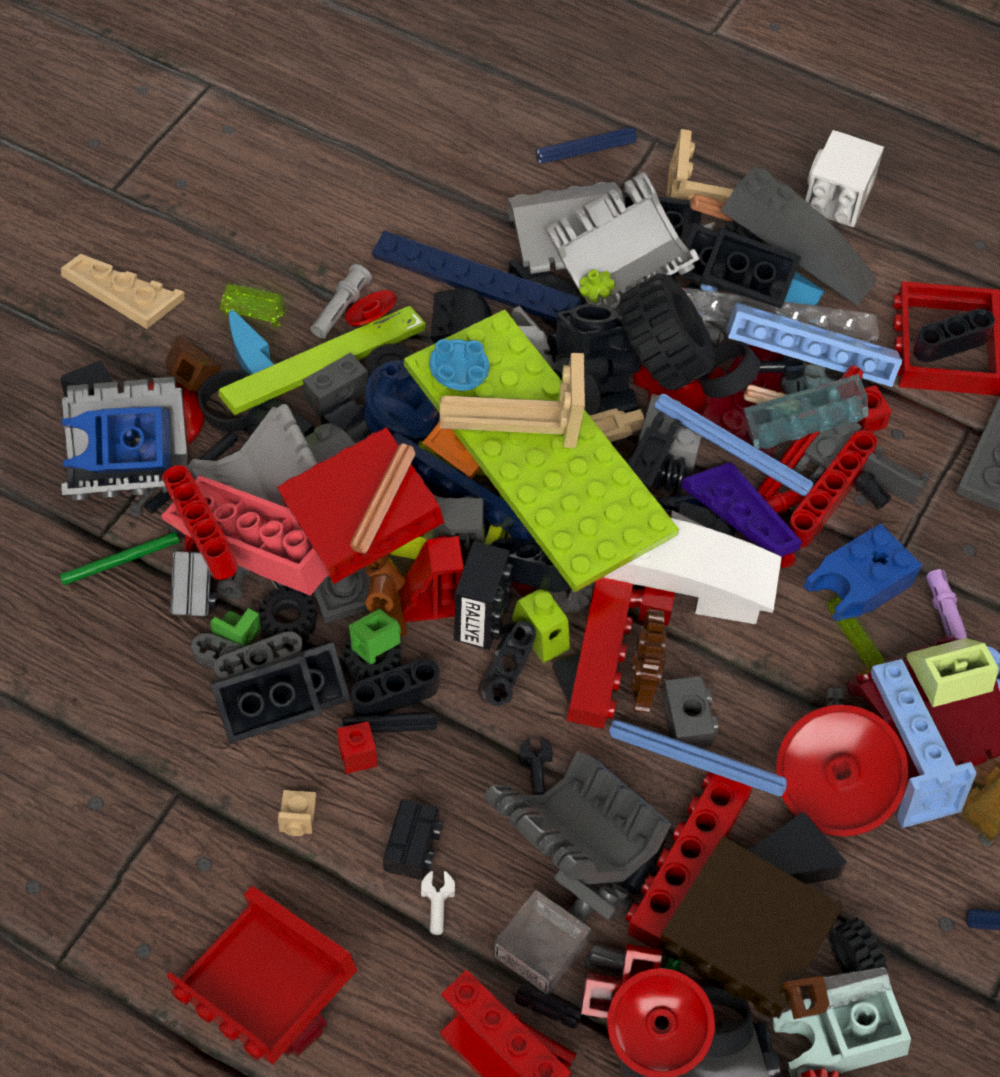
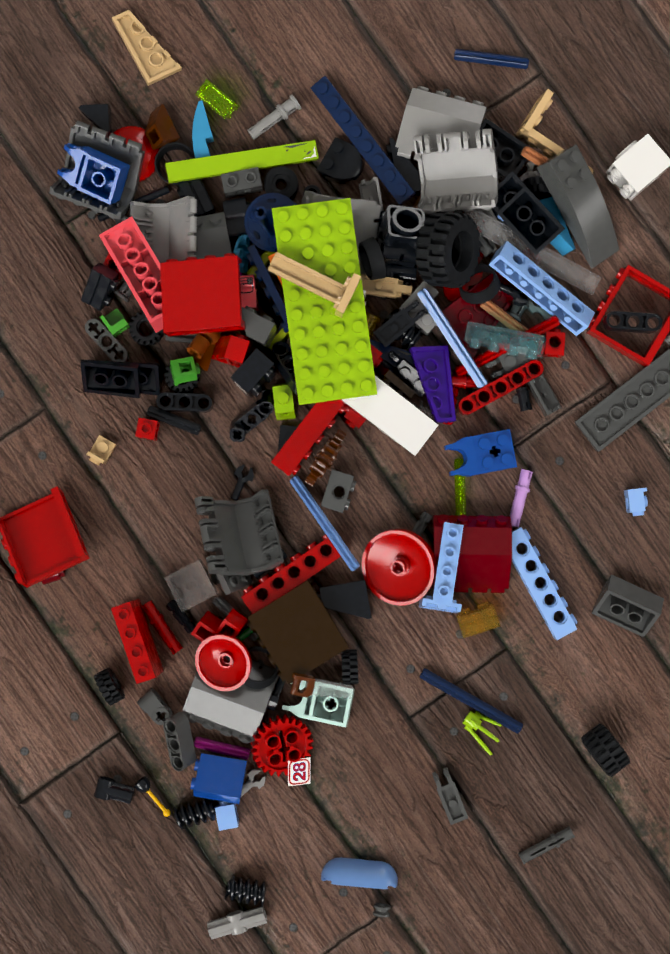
camera: 30 degrees right, 30 degrees up
(119, 558) = (66, 245): green bar -> none
(200, 522) = (114, 266): red beam -> none
(233, 658) = (102, 356): dark grey beam -> none
(370, 308) = (289, 132): red dish -> none
(382, 498) = (211, 305): nougat axle -> none
(411, 840) = (153, 496): black brick -> none
(437, 900) = (152, 534): white bar -> none
(459, 364) = (299, 231): dark azure dish -> none
(596, 285) = (430, 186): lime plant -> none
(954, 670) = (486, 545): yellowish green slope -> none

